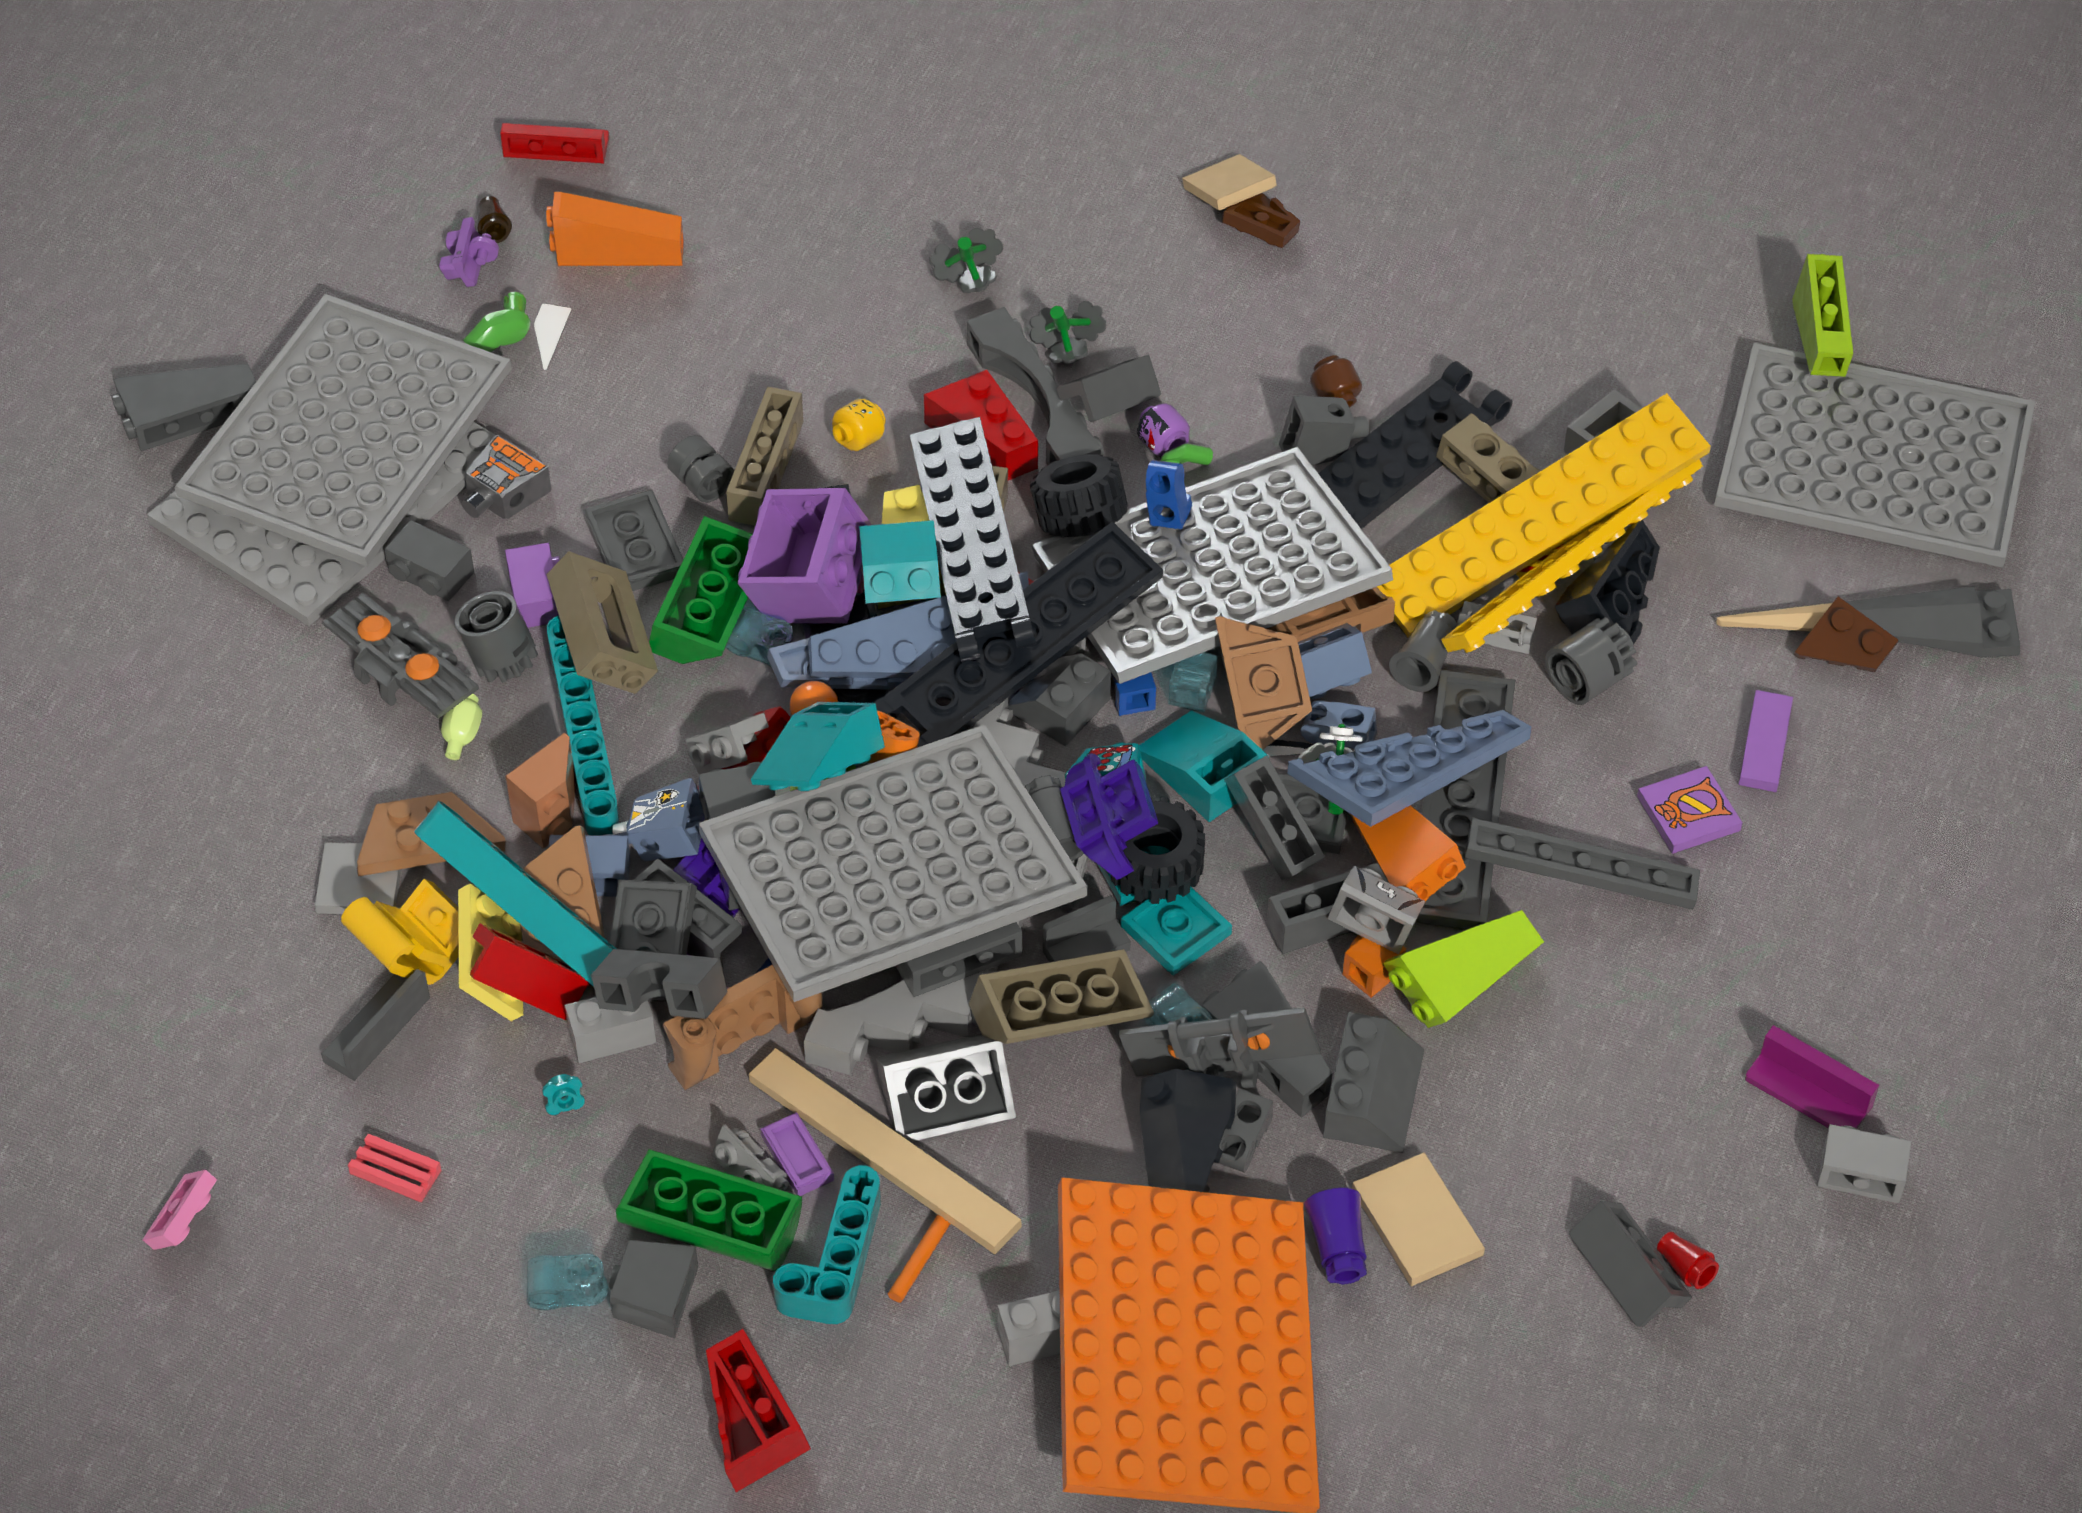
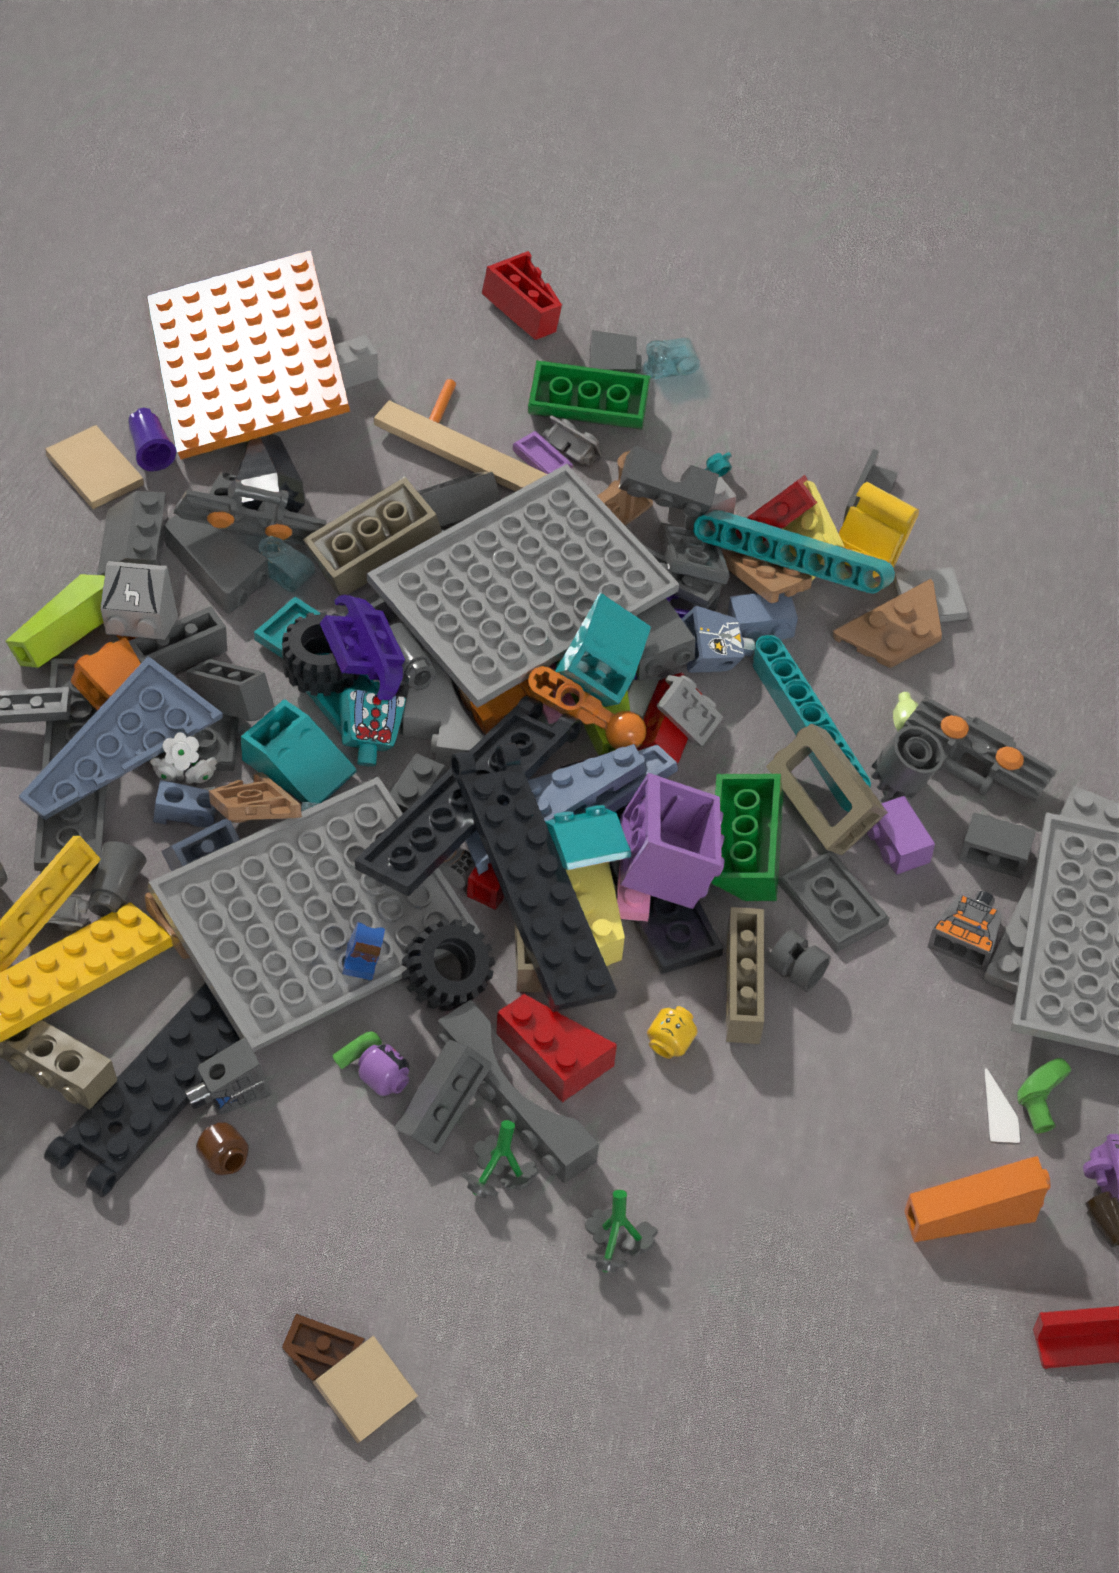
camera: 165 degrees right, 0 degrees up
(186, 1200) = (942, 369): bright pink plate -> none
(377, 1152) = (814, 417): coral tile -> none
(544, 792) = (815, 642): nougat slope -> none
(841, 1244) = (498, 371): teal beam -> none

